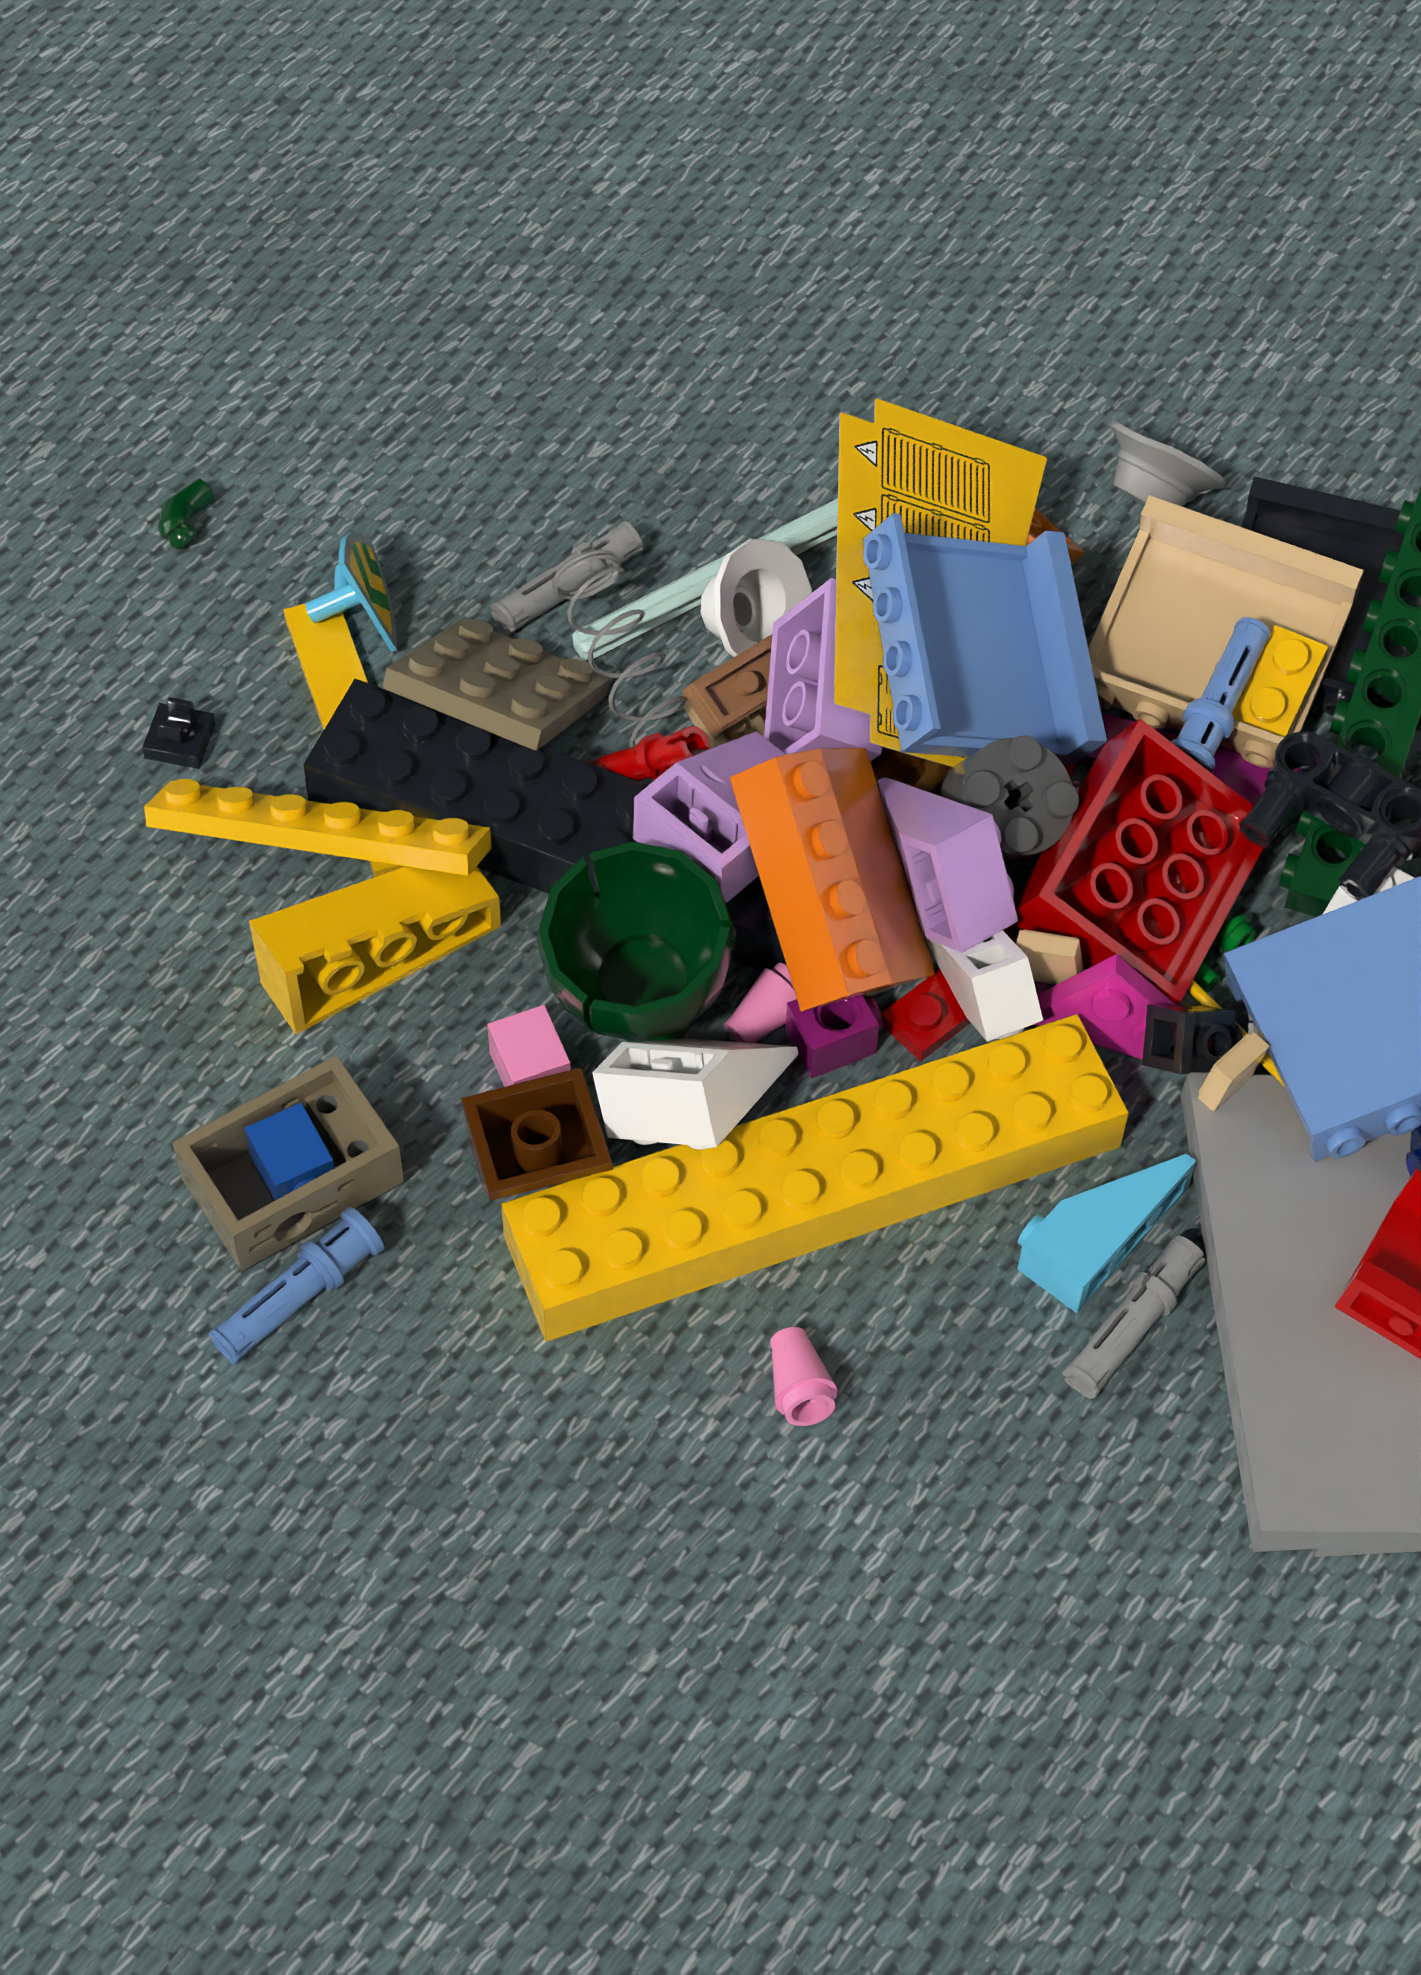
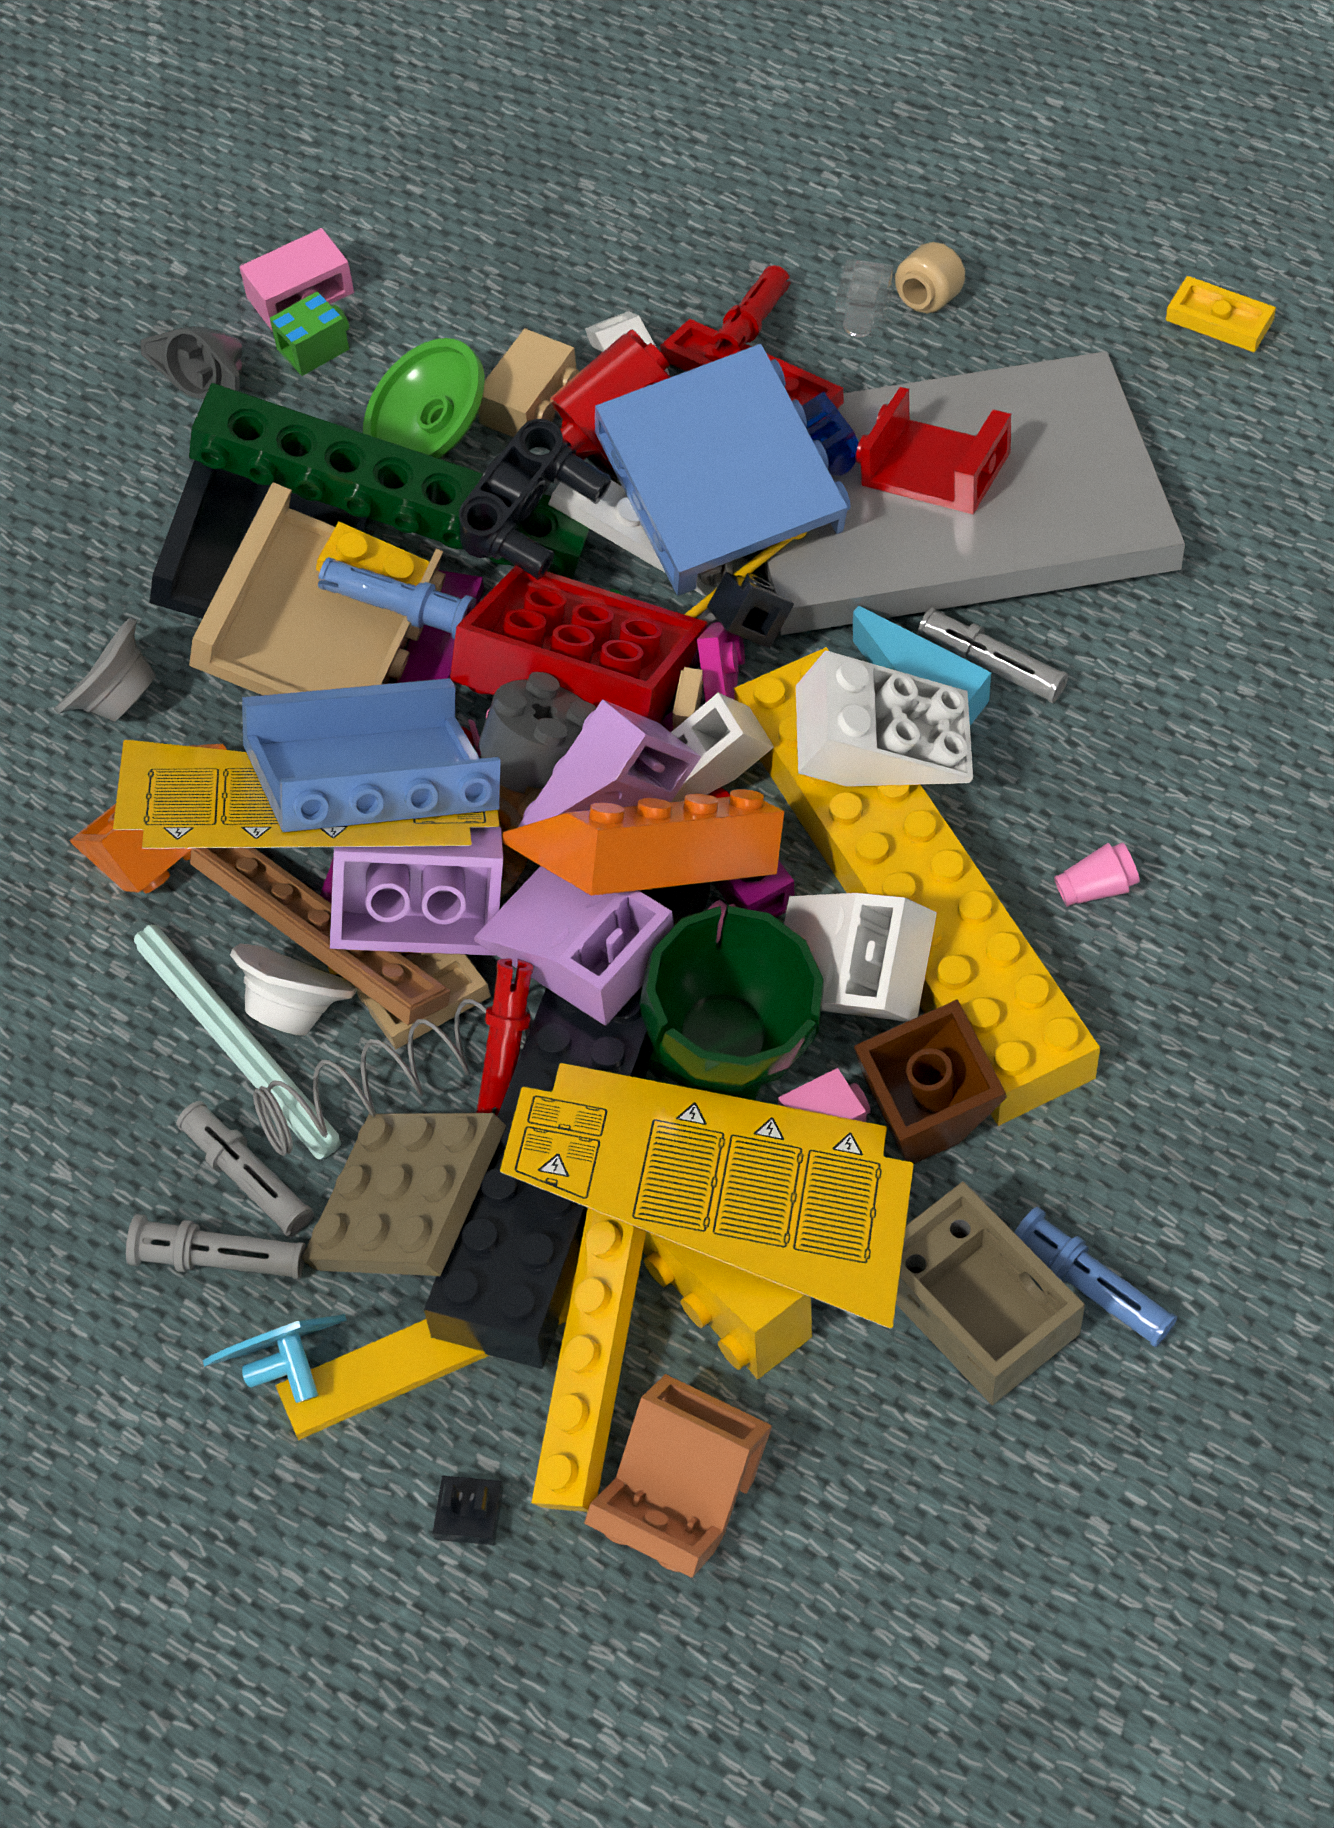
camera: 90 degrees left, 0 degrees up
(150, 889) = (680, 1476): none -> nougat piece
(180, 508) = (168, 1569): dark green arm -> none
(287, 1151) = (978, 1286): blue brick -> none
(432, 927) = (726, 1176): none -> yellow sticker
(489, 534) = (187, 1238): none -> light grey pin
(980, 1135) = (880, 726): none -> white slope
(1232, 1071) = (787, 568): tan tile -> none

